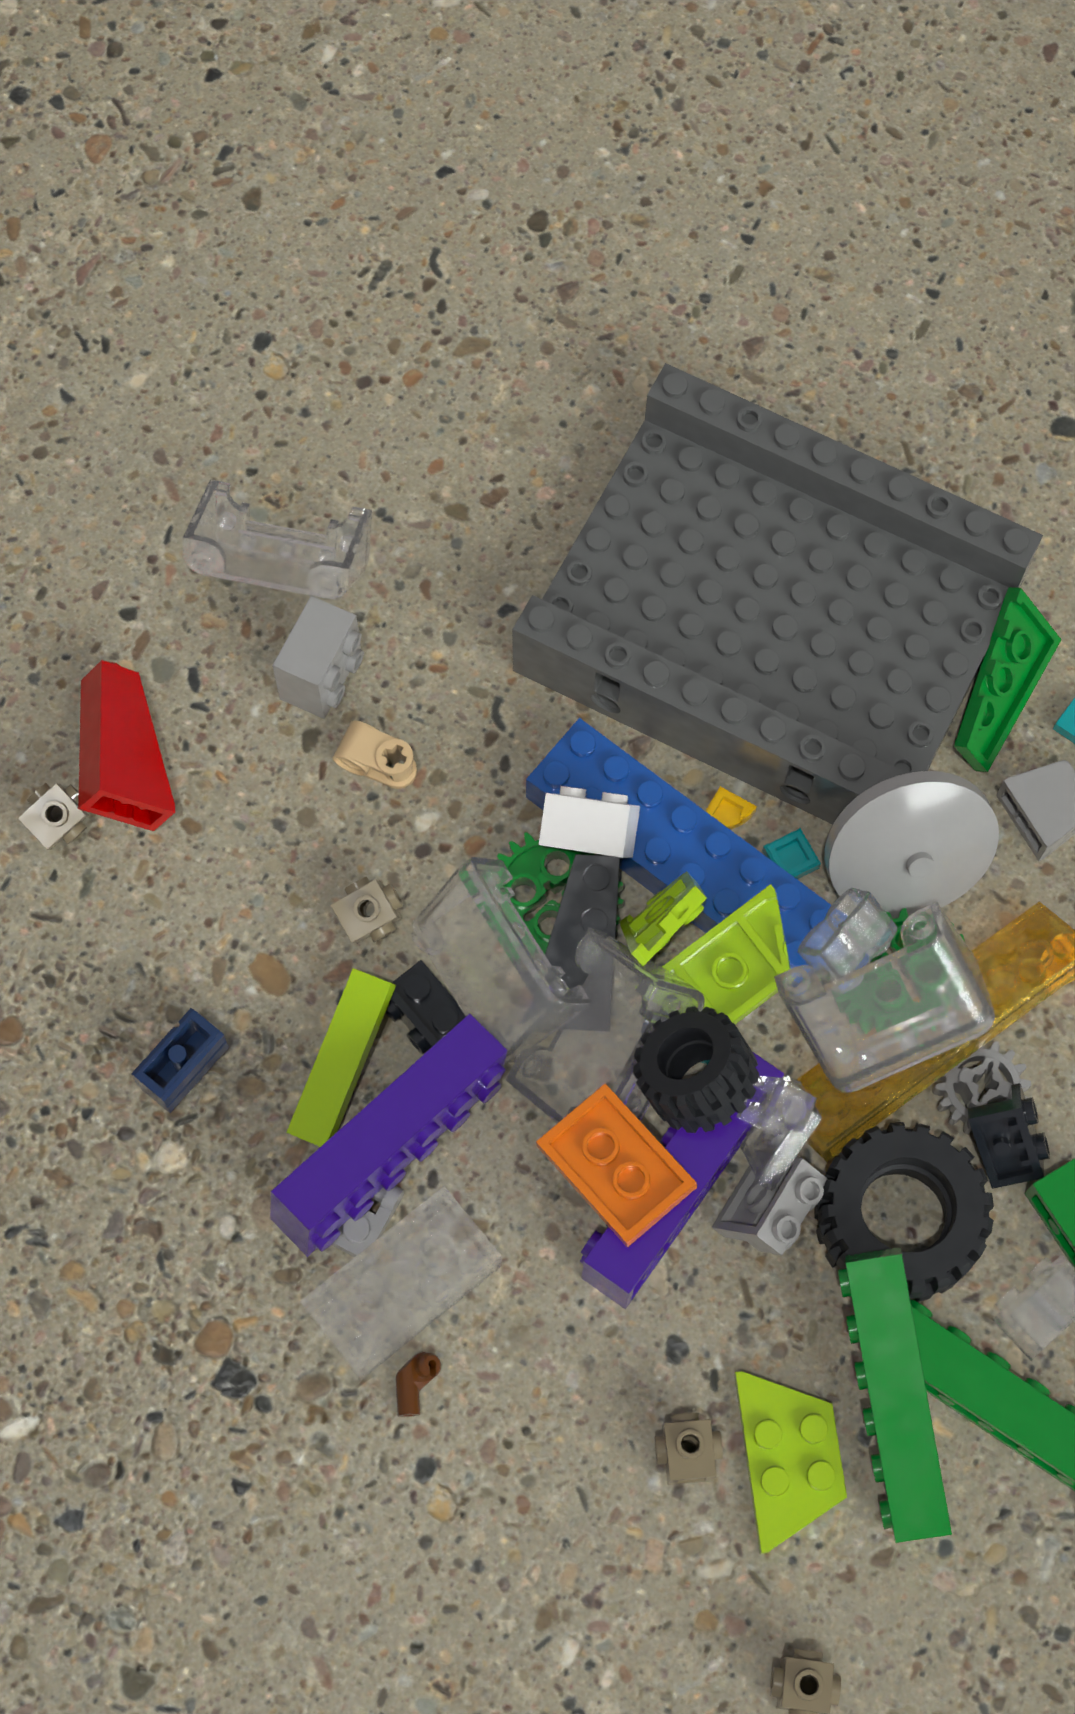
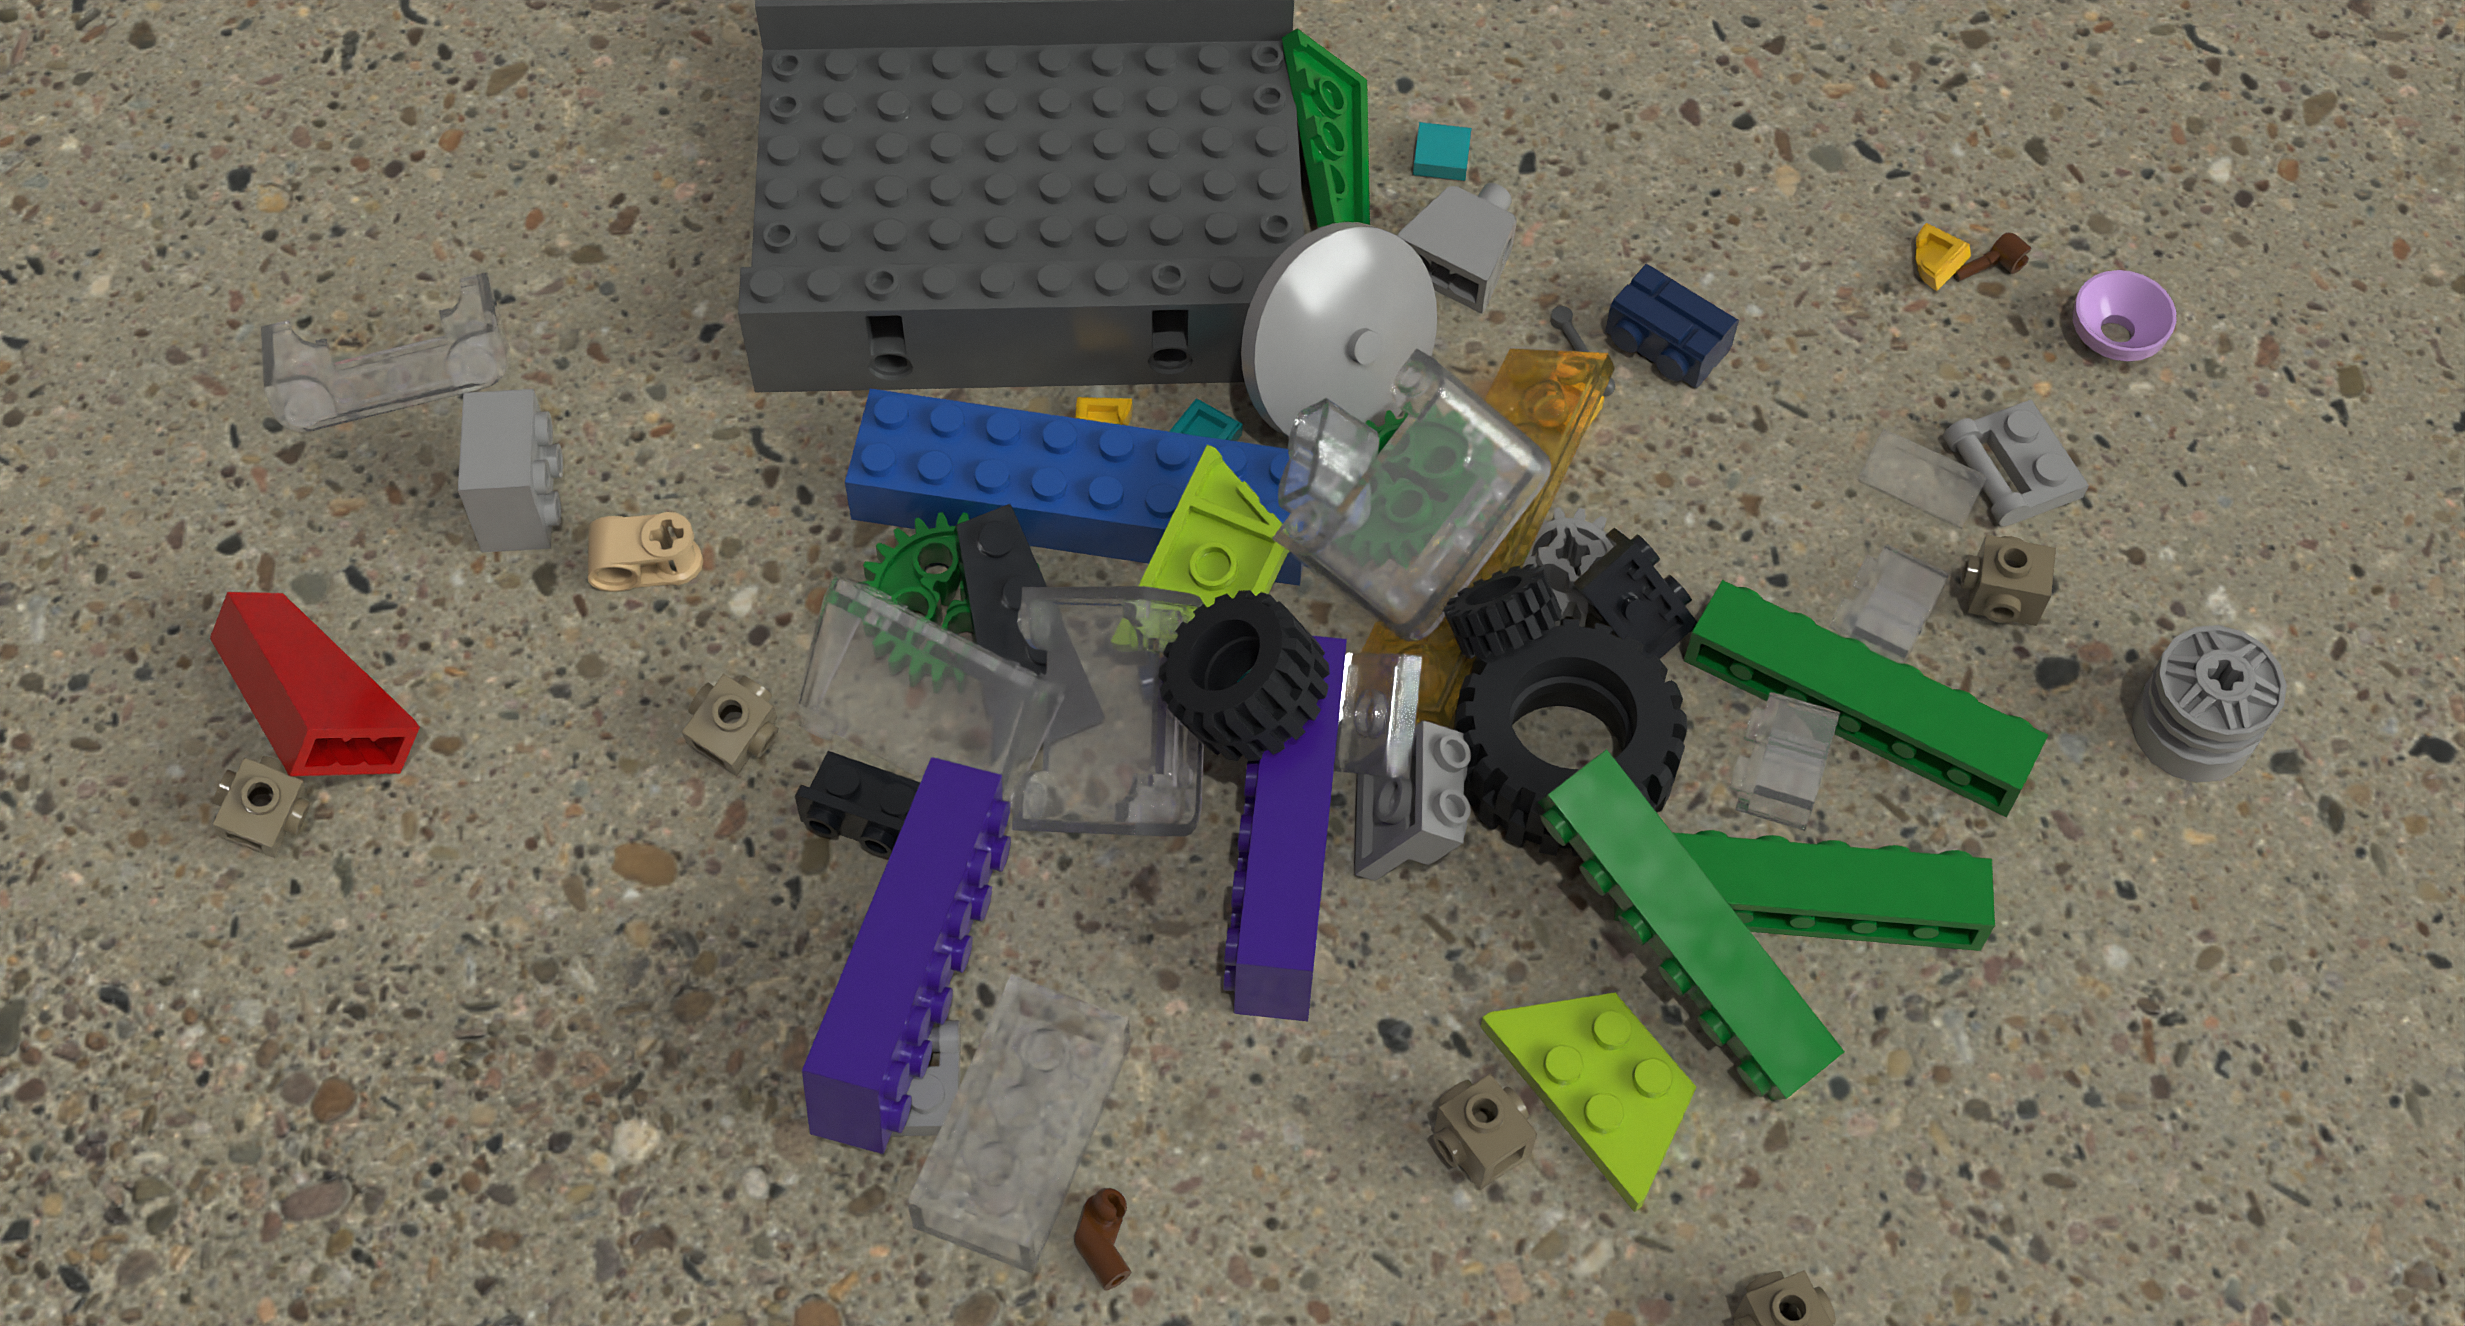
camera: 30 degrees left, 10 degrees down
(180, 1060) = (586, 1008): dark blue brick -> none
(341, 1058) = (793, 904): lime tile -> none
(589, 824) = (951, 484): white brick -> none
(616, 1165) = (1212, 830): orange plate -> none
(662, 917) = (1105, 531): lime wing -> none
(777, 1106) = (1364, 669): clear brick -> none
(900, 1109) = (1503, 611): none -> black tyre

